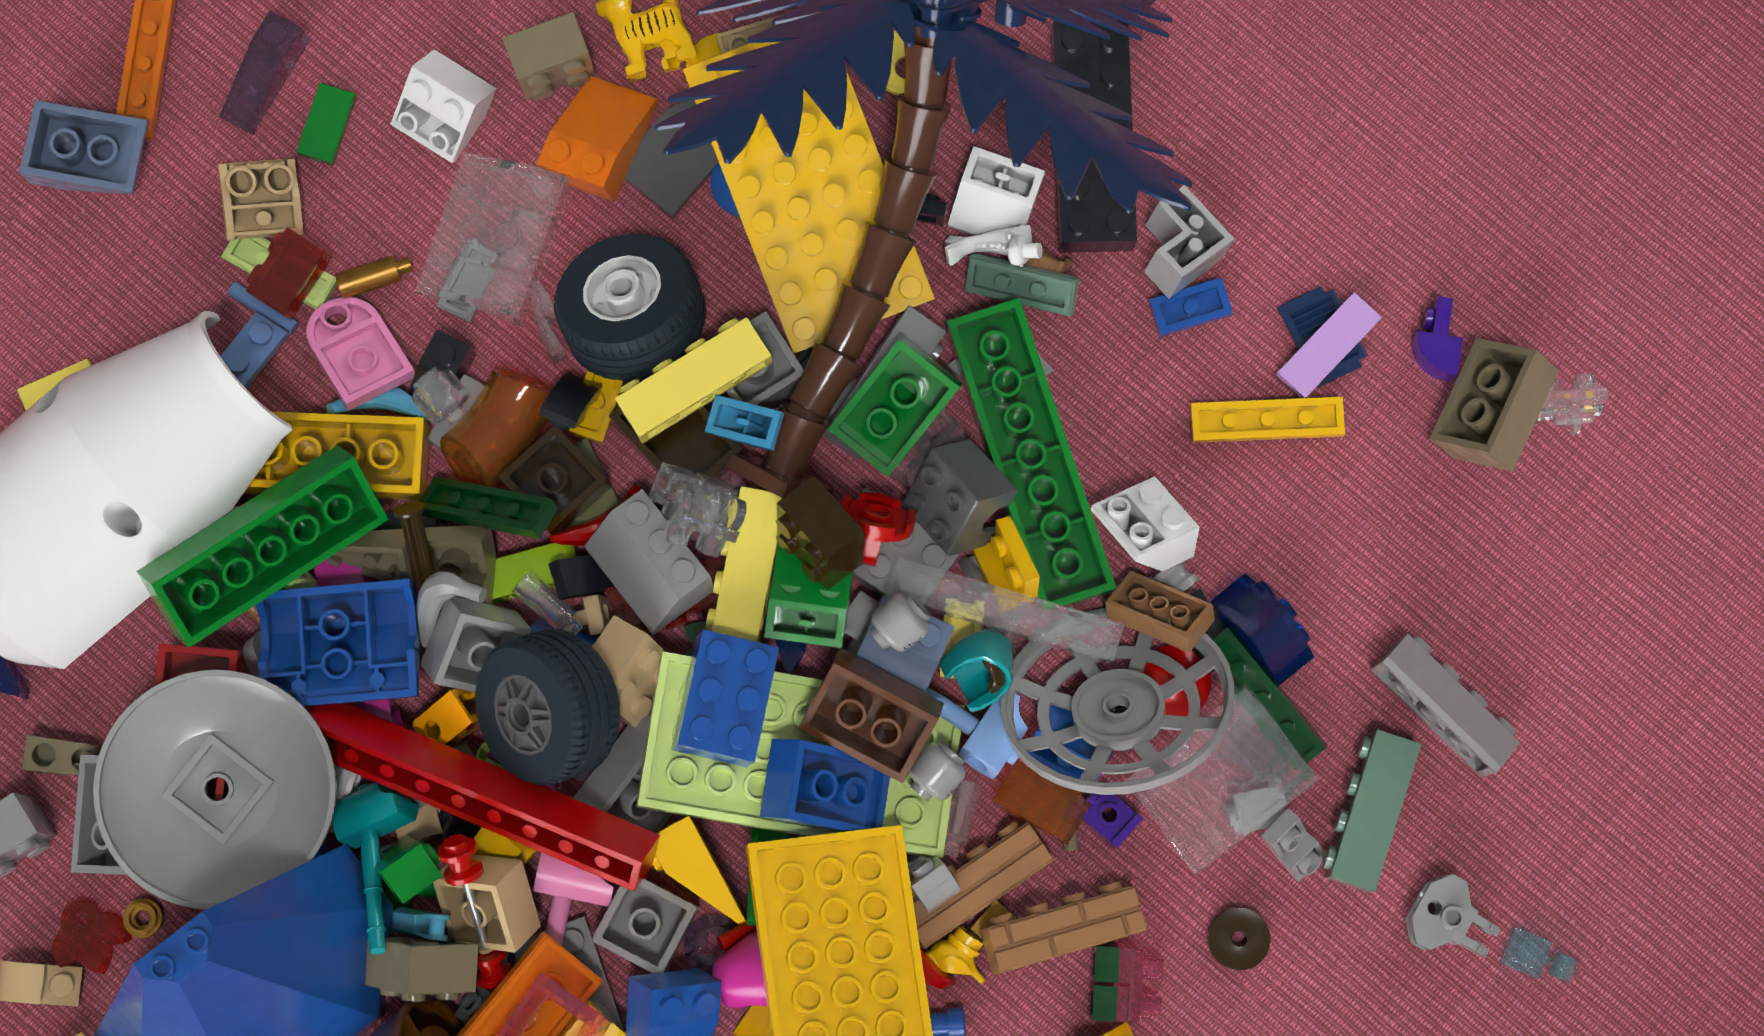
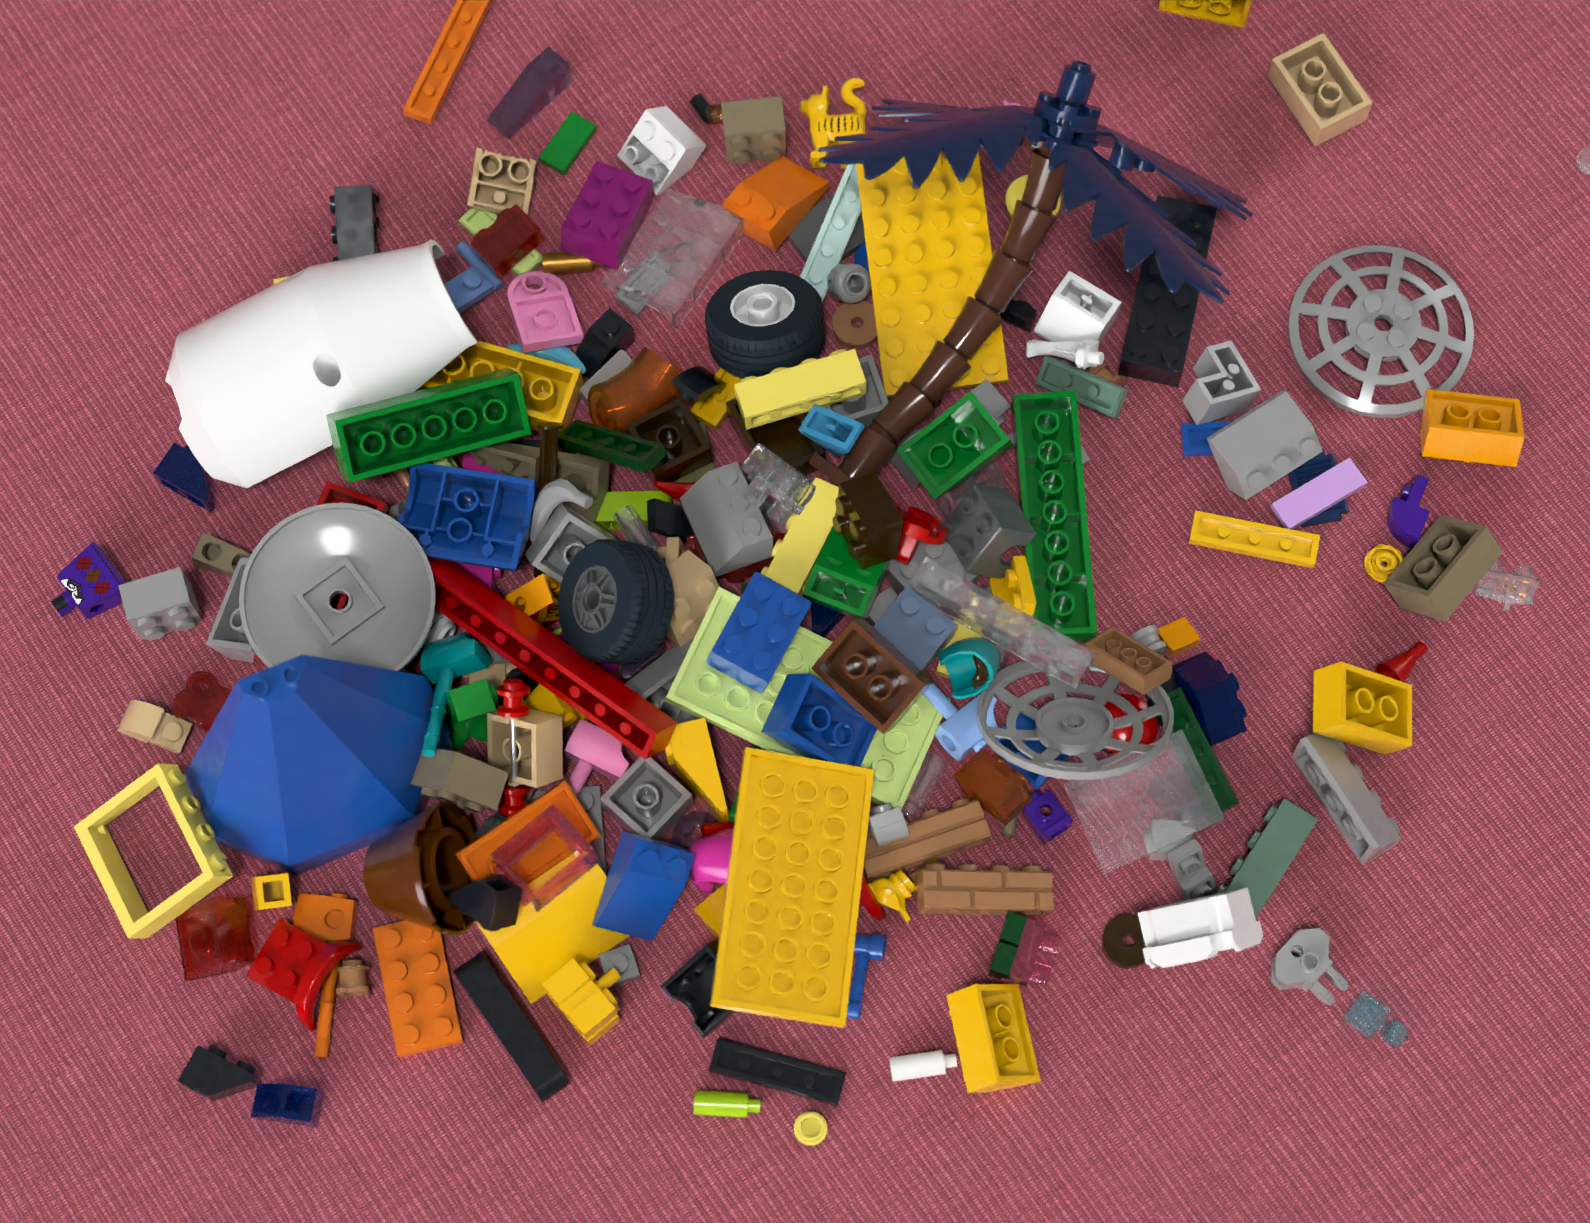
camera: 20 degrees right, 10 degrees down
(82, 149) = (375, 114): sand blue slope -> none
(99, 304) = (355, 221): none -> black wedge
(400, 209) = (606, 215): none -> magenta brick
(419, 923) = (472, 748): medium azure bar -> none
(440, 396) = (598, 356): clear head -> none
(486, 42) = (708, 112): none -> arm
(544, 316) = (696, 324): clear slope -> none
(680, 170) = (834, 232): none -> light aqua tile
(714, 222) = (849, 282): none -> light grey head
(730, 285) = (855, 337): none -> medium nougat piece
(900, 622) = (914, 604): light grey head -> none
(937, 772) = (913, 739): light grey head -> none
(1149, 524) = (1137, 591): white slope -> none
(1209, 560) = (1179, 637): none -> light orange slope
(1253, 305) = (1264, 445): none -> light grey slope
(1320, 917) = (1199, 928): none -> white piece
(1350, 142) = (1377, 344): none -> light grey dish
(1421, 399) = (1380, 554): none -> yellow plate
(1442, 601) = (1362, 708): none -> yellow brick
(1466, 537) = (1402, 664): none -> red cone
(1486, 219) = (1471, 428): none -> light orange slope

